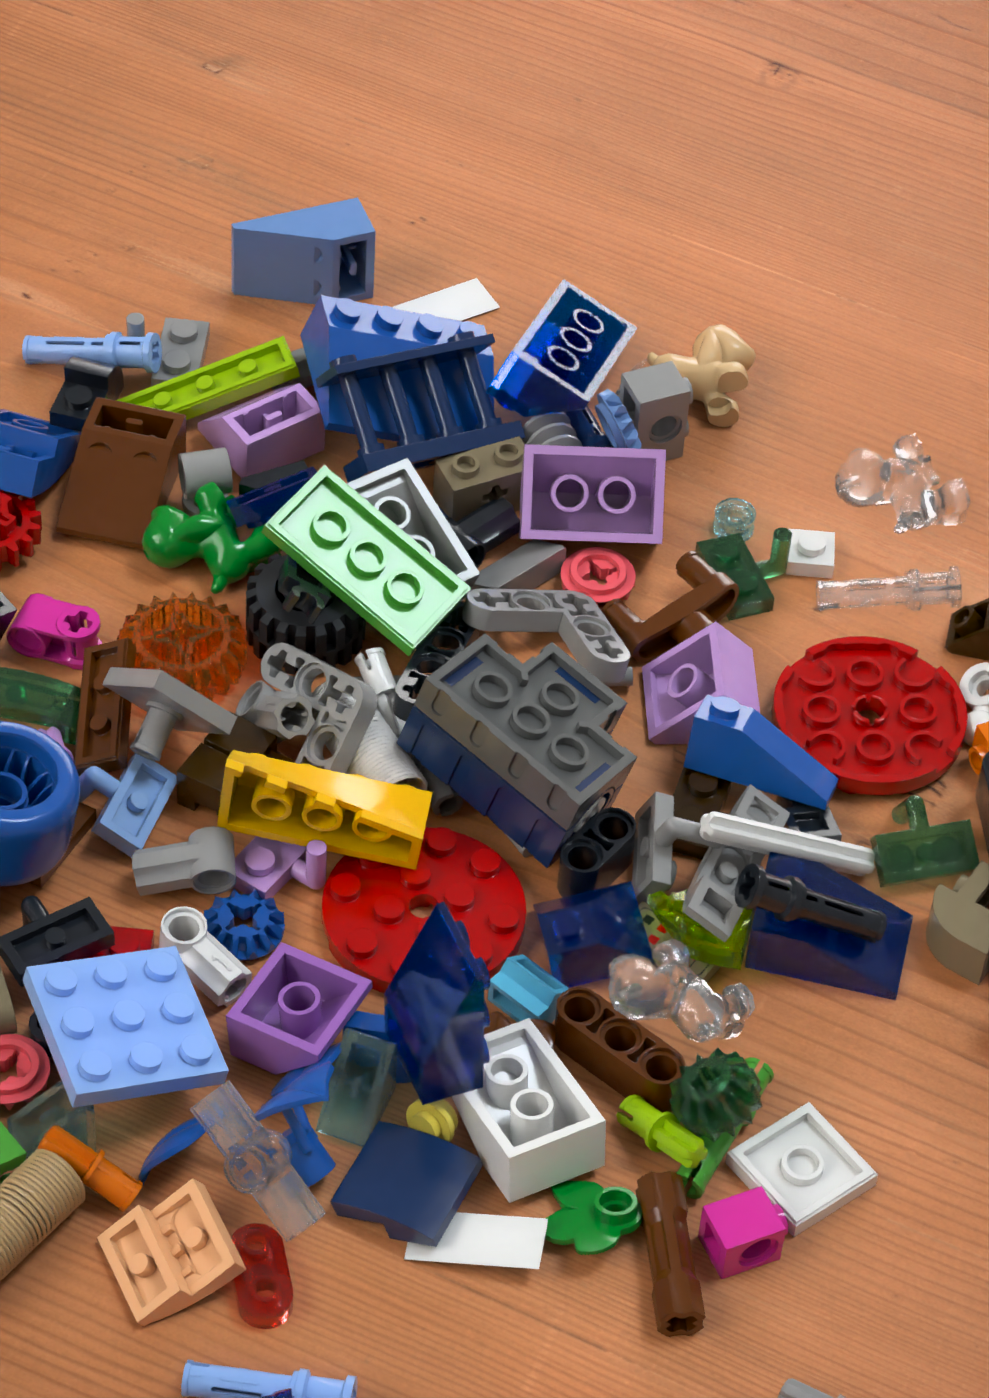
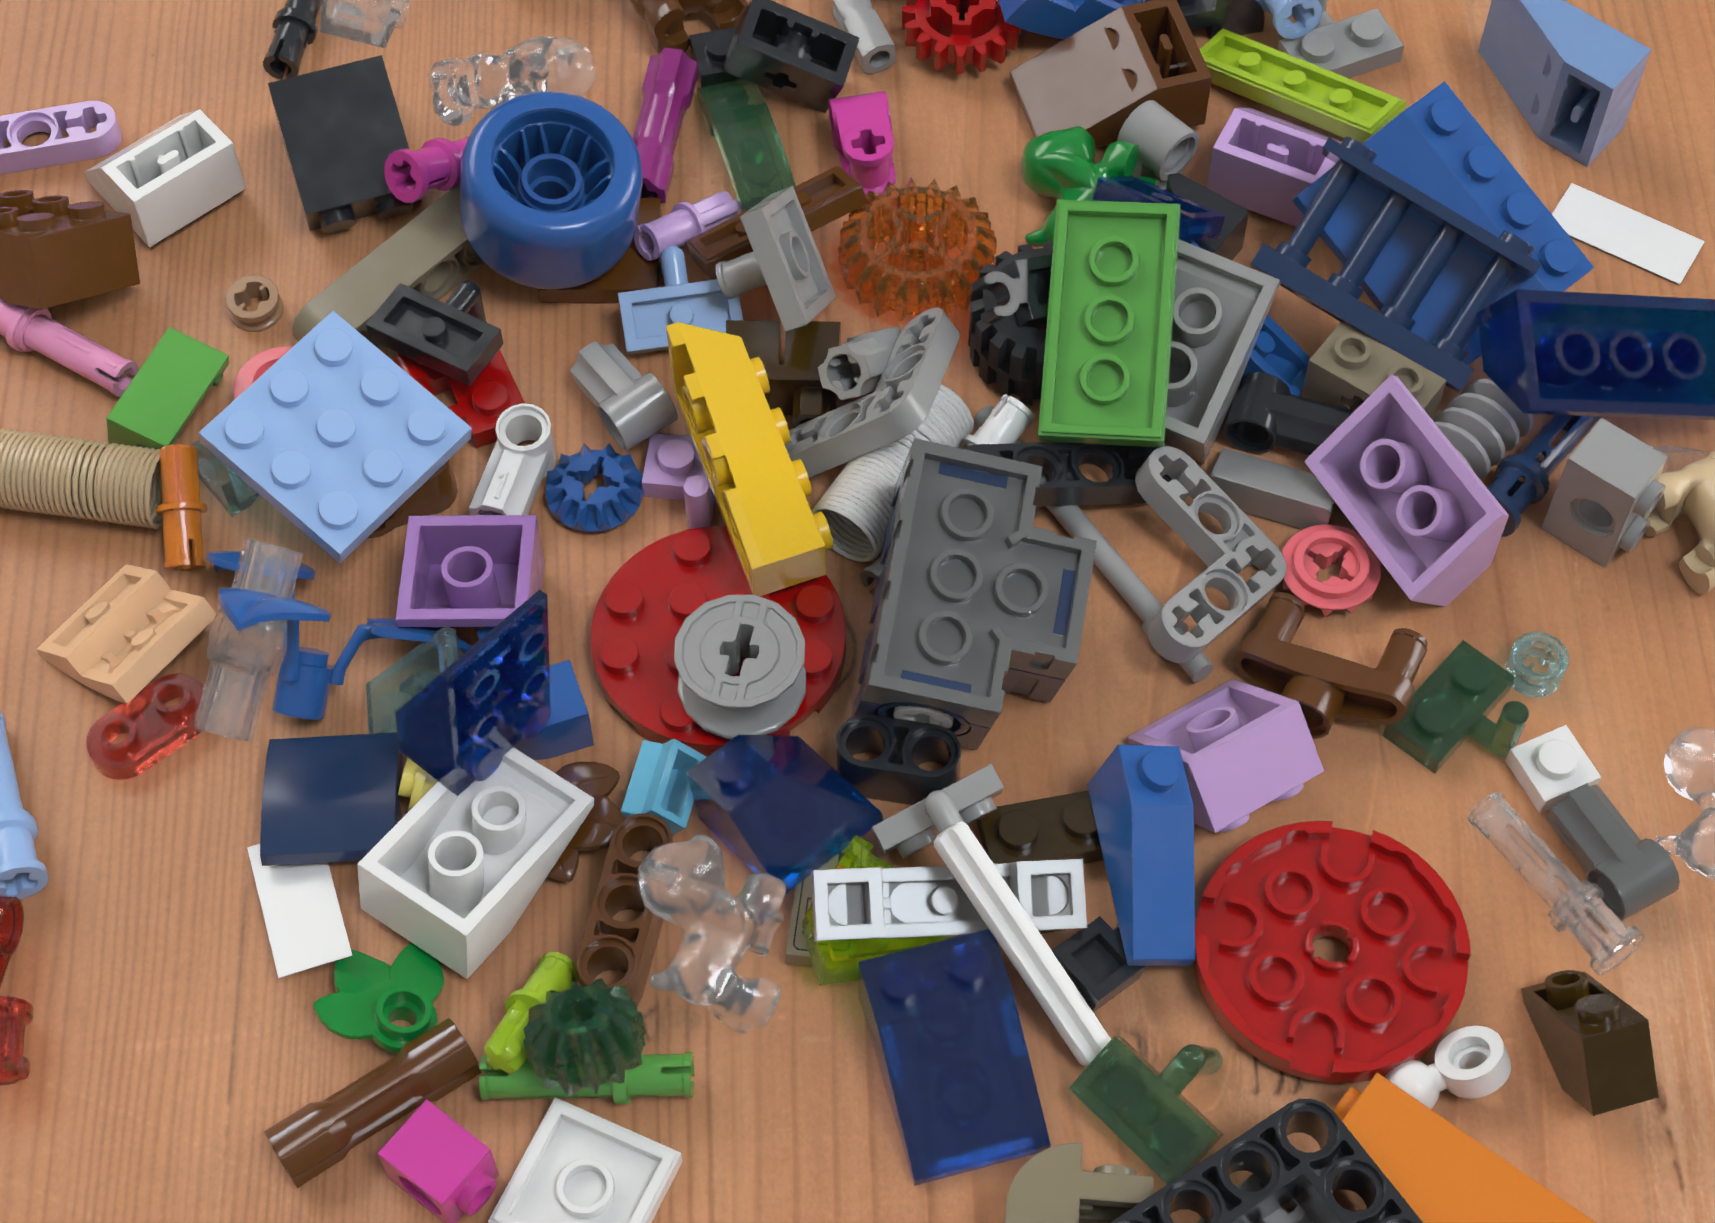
camera: 65 degrees right, 10 degrees up
(485, 887) = (711, 651): none -> light grey piece
(616, 421) = (1535, 460): medium blue gear -> none
(791, 900) = (958, 1083): black pin -> none
(888, 555) = (1626, 868): none -> dark grey piece

